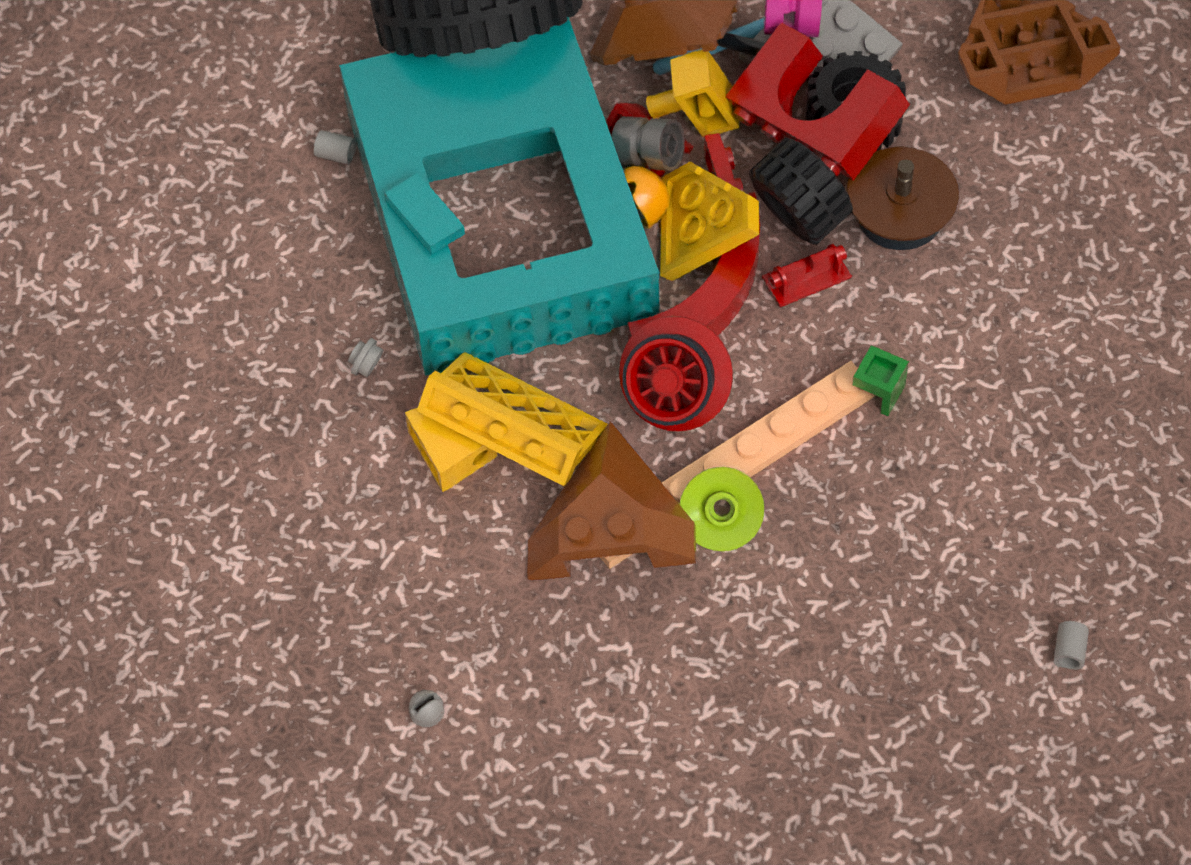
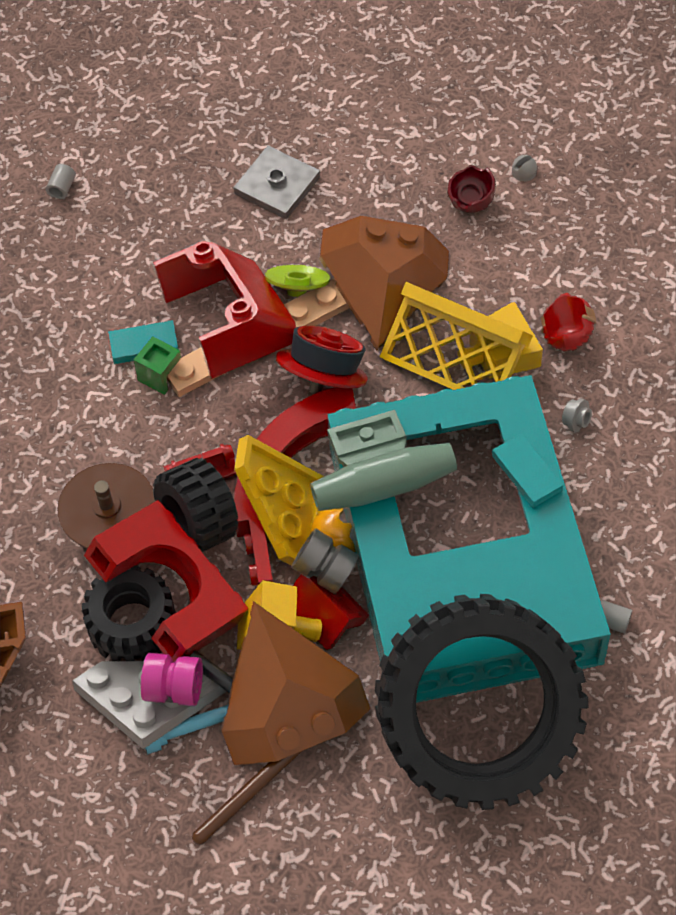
camera: 175 degrees left, 0 degrees up
(372, 460) = (568, 322): none -> red hair
(491, 639) = (472, 189): none -> dark red hair
(594, 197) = (378, 463): none -> sand green plate
(769, 449) = (255, 321): none -> red windscreen
(769, 667) = (277, 182): none -> plate
(907, 427) = (130, 341): none -> teal tile

